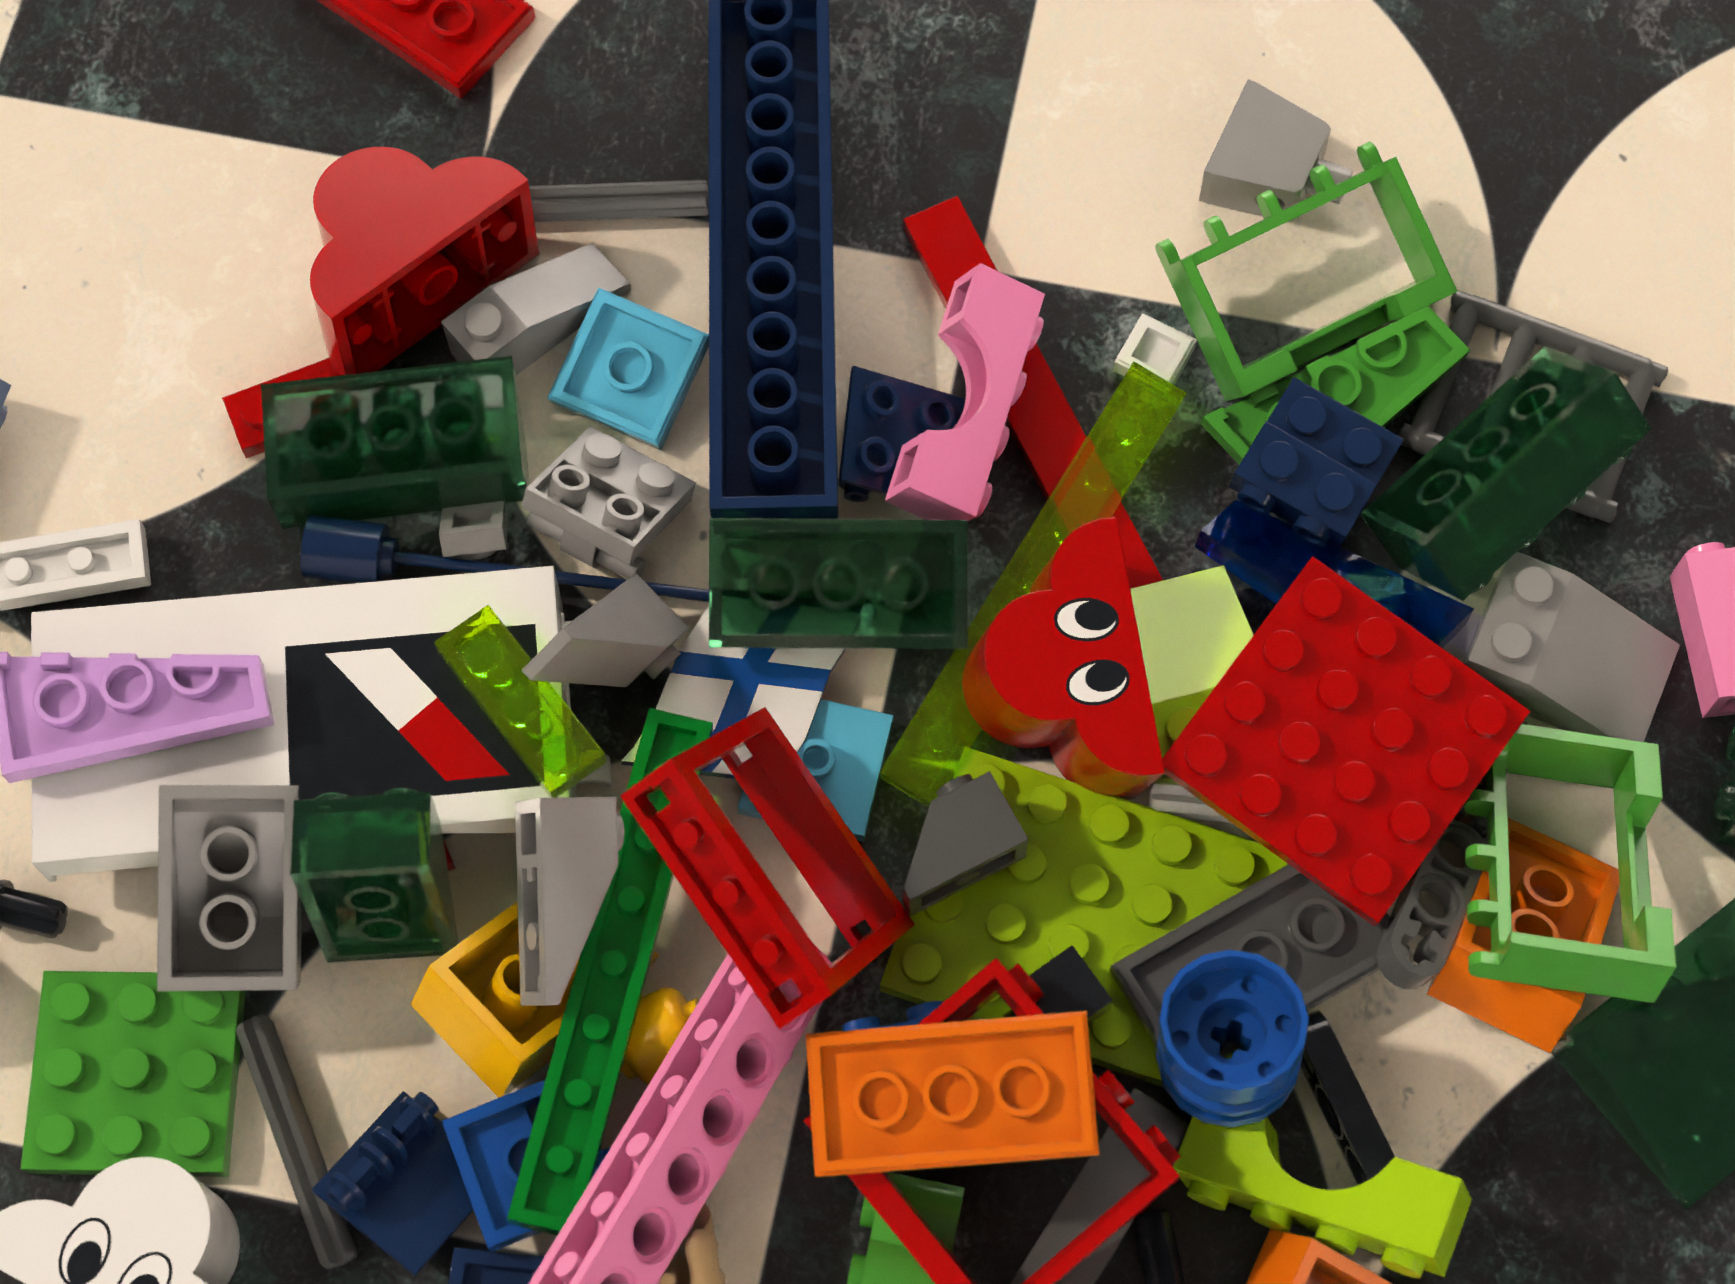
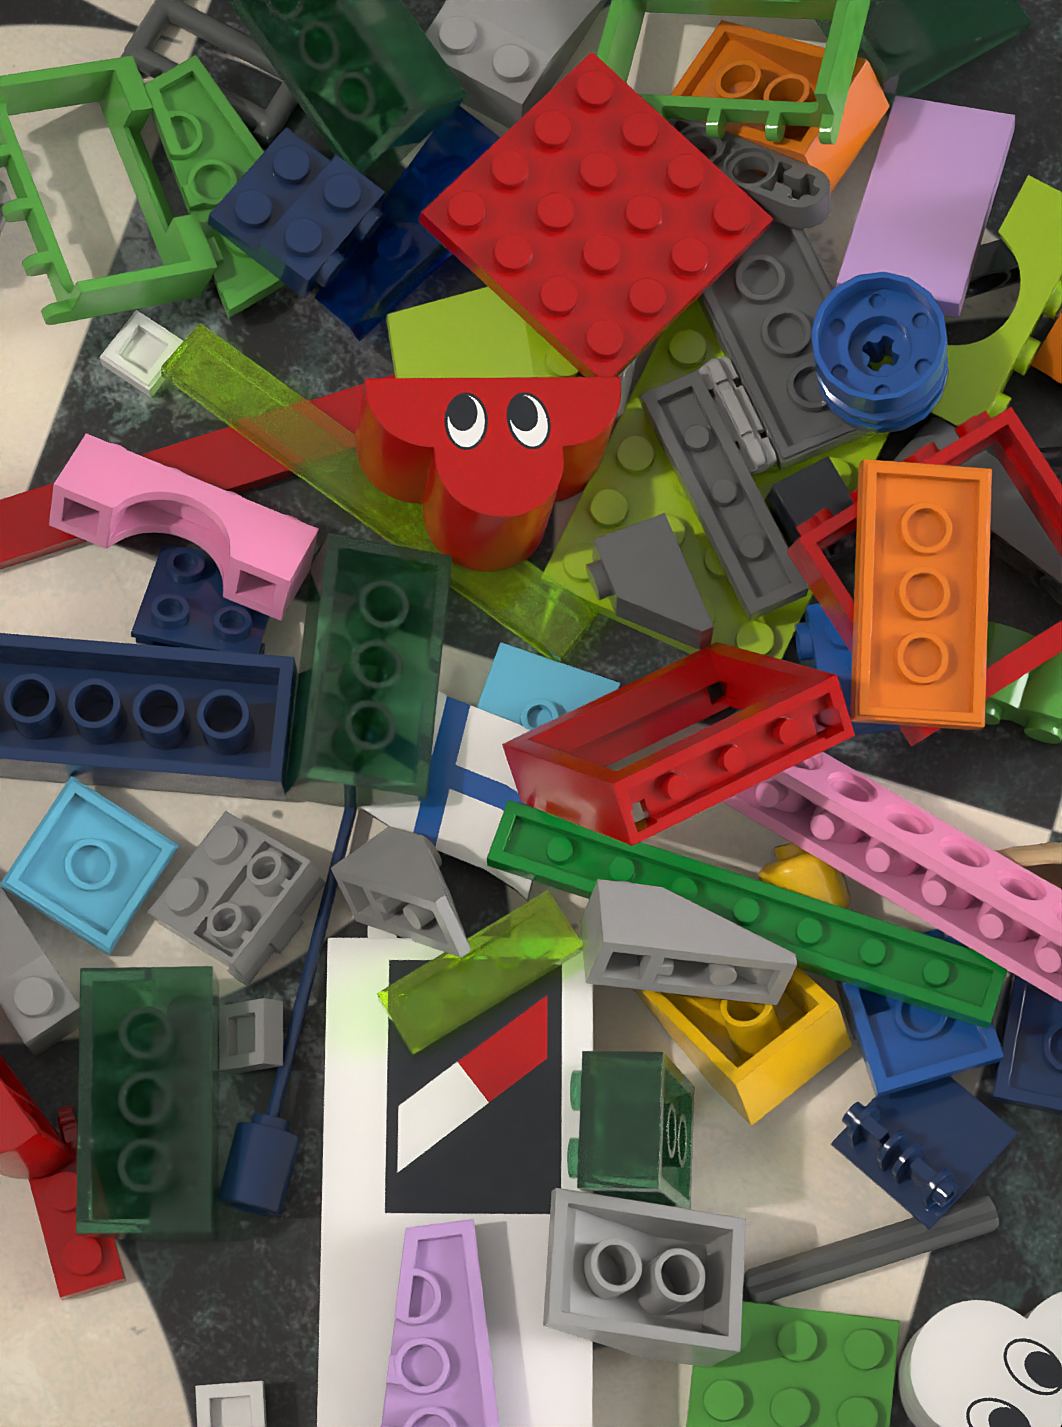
camera: 85 degrees left, 5 degrees up
(1073, 902) = (723, 495): none -> dark grey plate
(1158, 915) = (738, 414): none -> light grey axle
(1433, 1096) = (930, 197): none -> lavender tile

